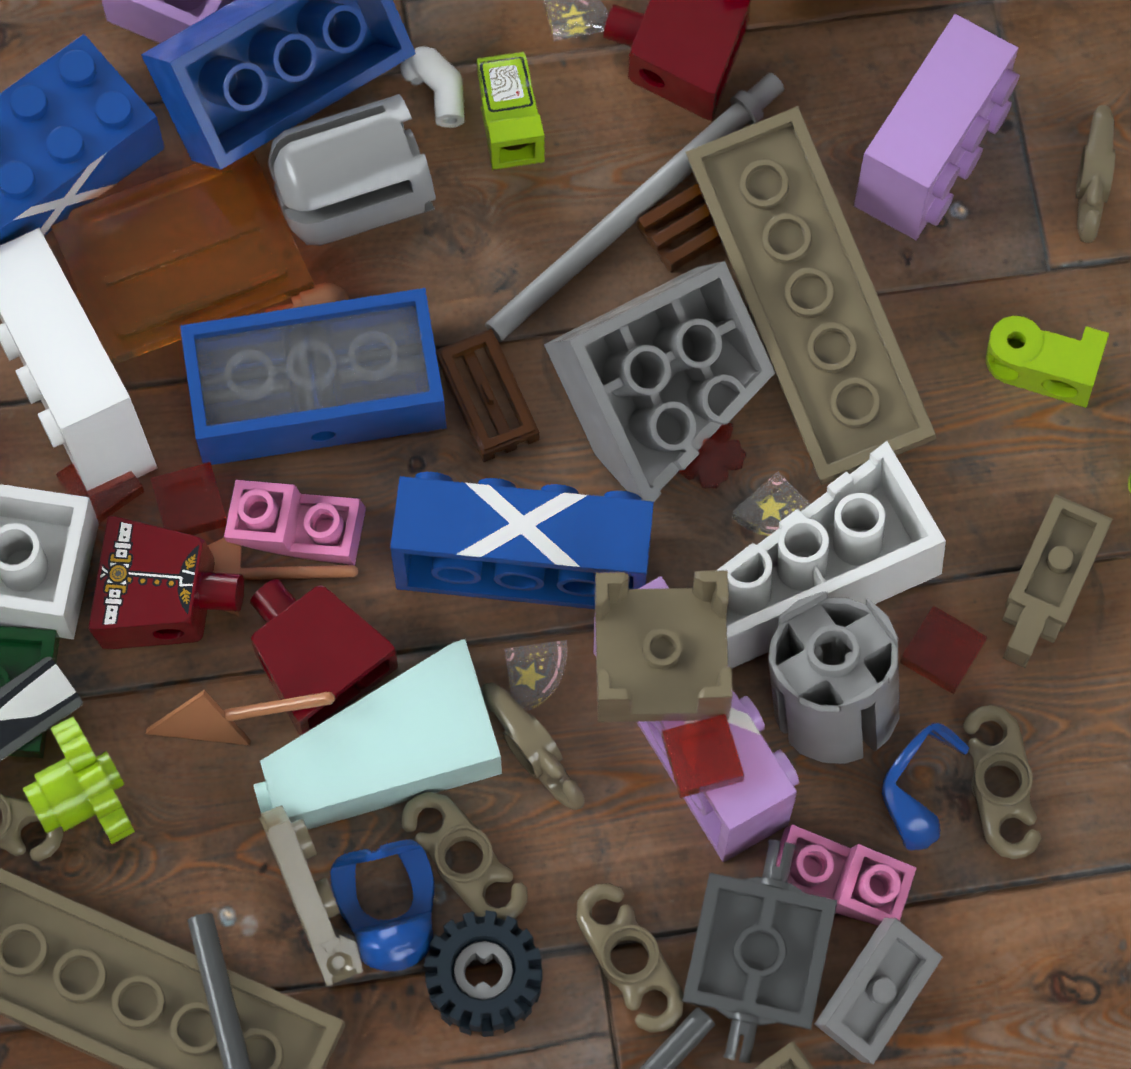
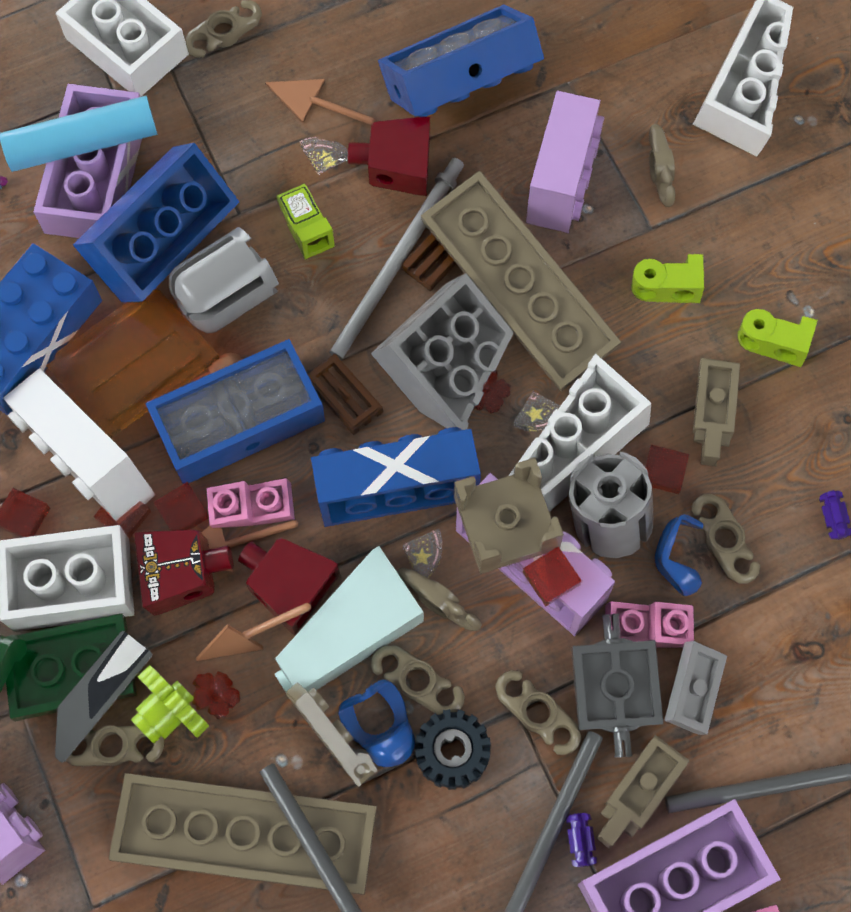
camera: 15 degrees left, 0 degrees up
(159, 788) = (215, 693): none -> clear red plant
(443, 79) = (260, 214): white arm -> none

